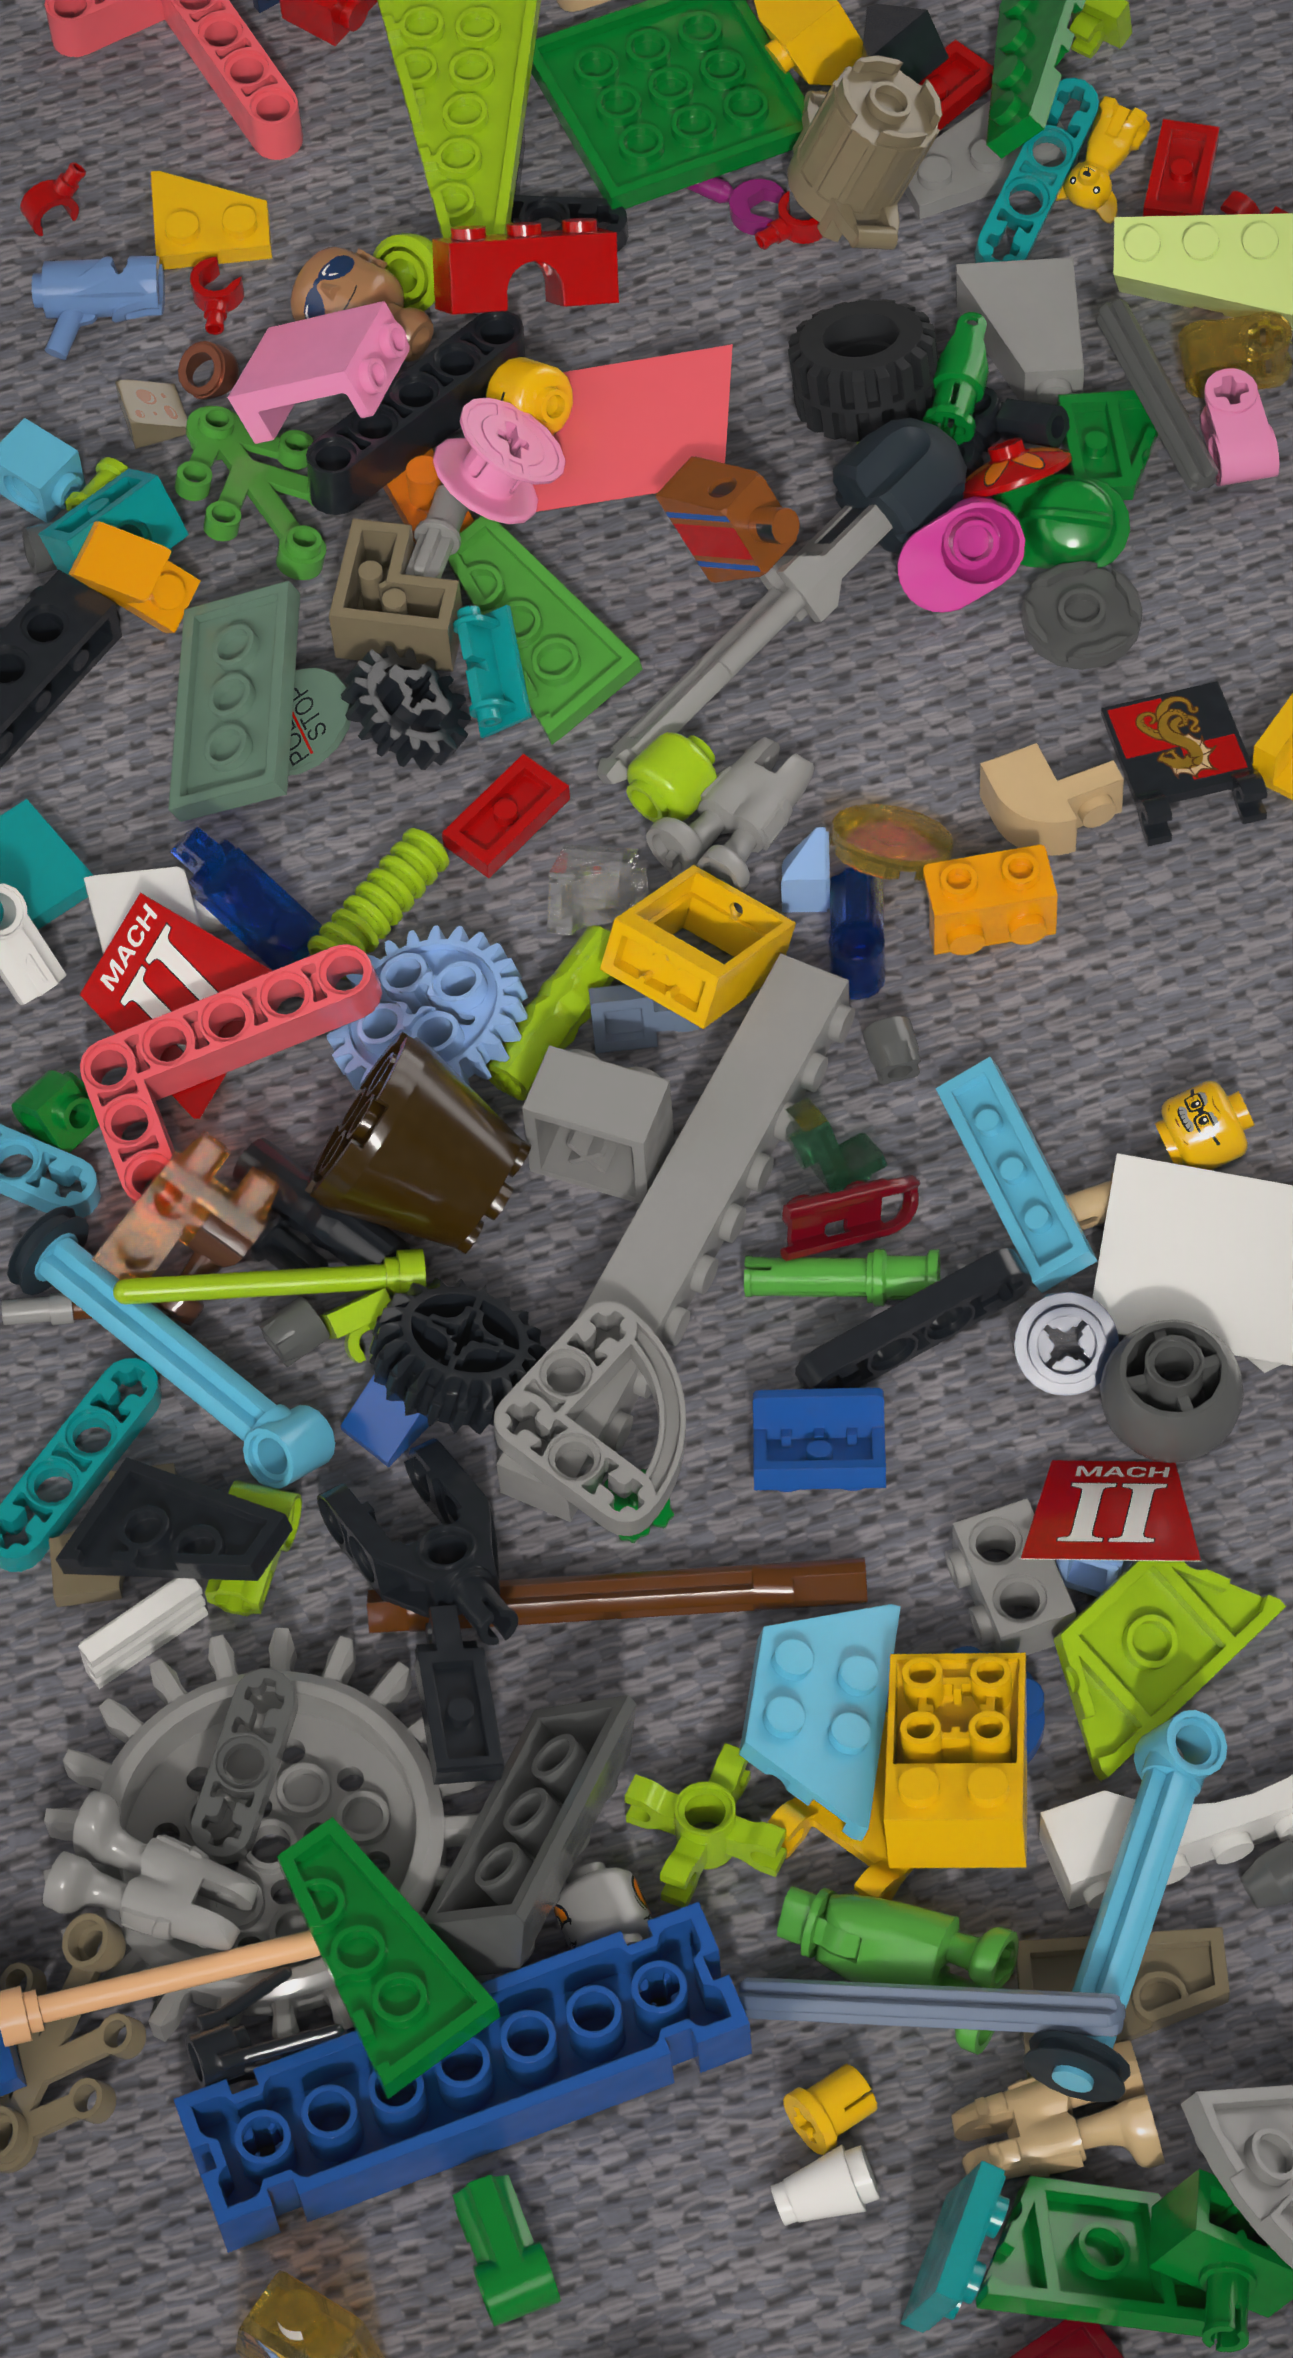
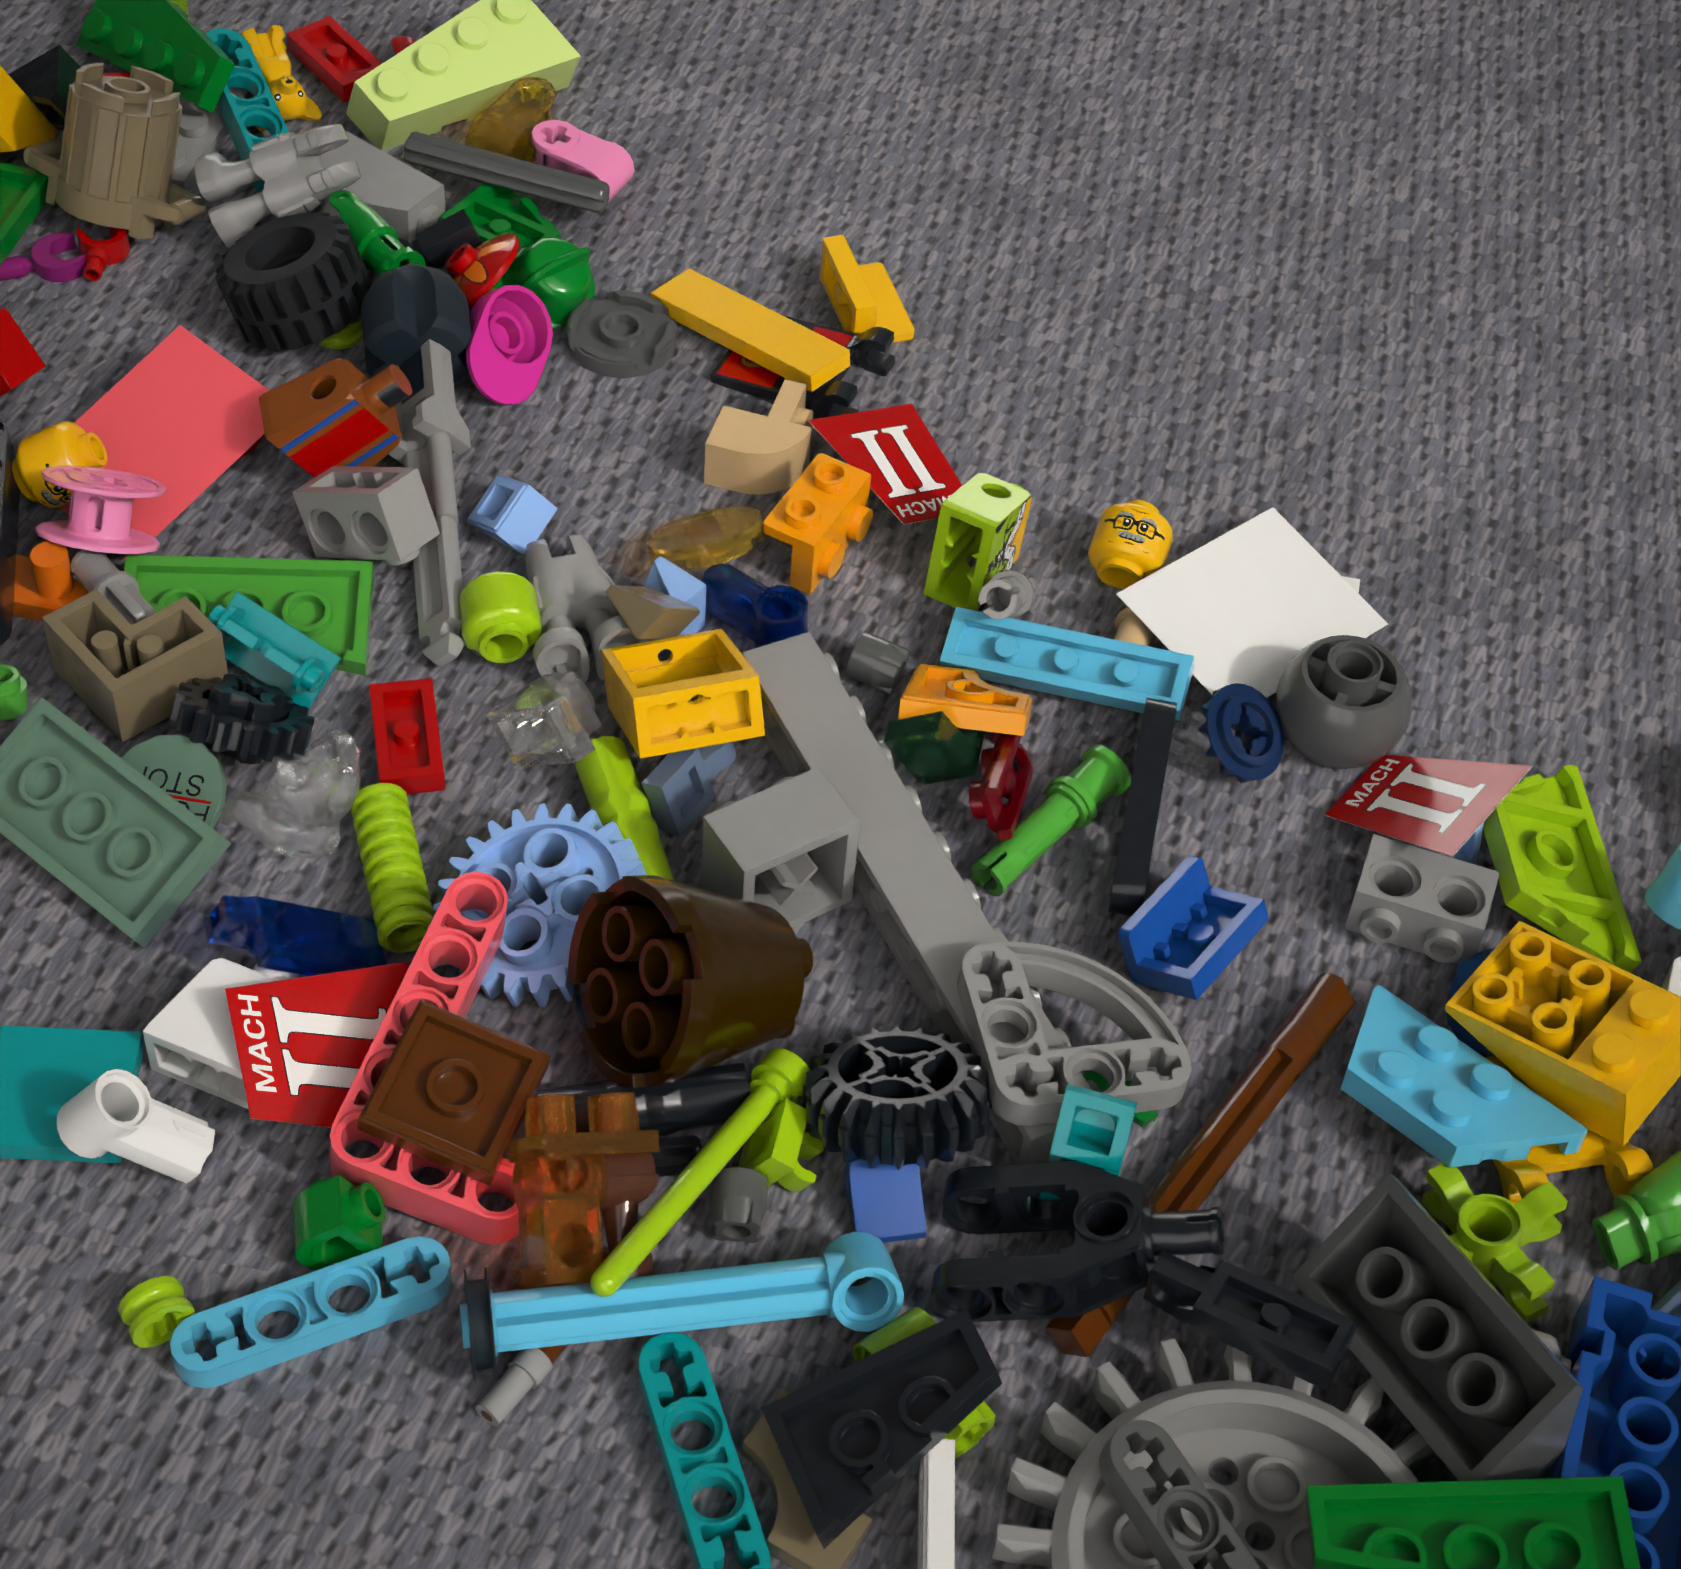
camera: 60 degrees left, 10 degrees down
(184, 1084) = (454, 1092): none -> reddish brown tile
(369, 804) = (303, 800): none -> clear hair
(517, 1506) = (1091, 1130): none -> teal slope
(668, 616) = (367, 513): none -> light grey brick
(753, 863) = (651, 612): none -> dark tan slope
(797, 702) = (512, 513): none -> light blue slope
(887, 1130) = (965, 700): none -> light orange tile
(960, 265) = (291, 174): none -> light grey piece
(1041, 1082) = (1008, 595): none -> light grey axle
(1087, 1018) = (981, 520): none -> lime torso
(1129, 903) = (900, 456): none -> red sticker
(1170, 694) = (752, 330): none -> yellow tile

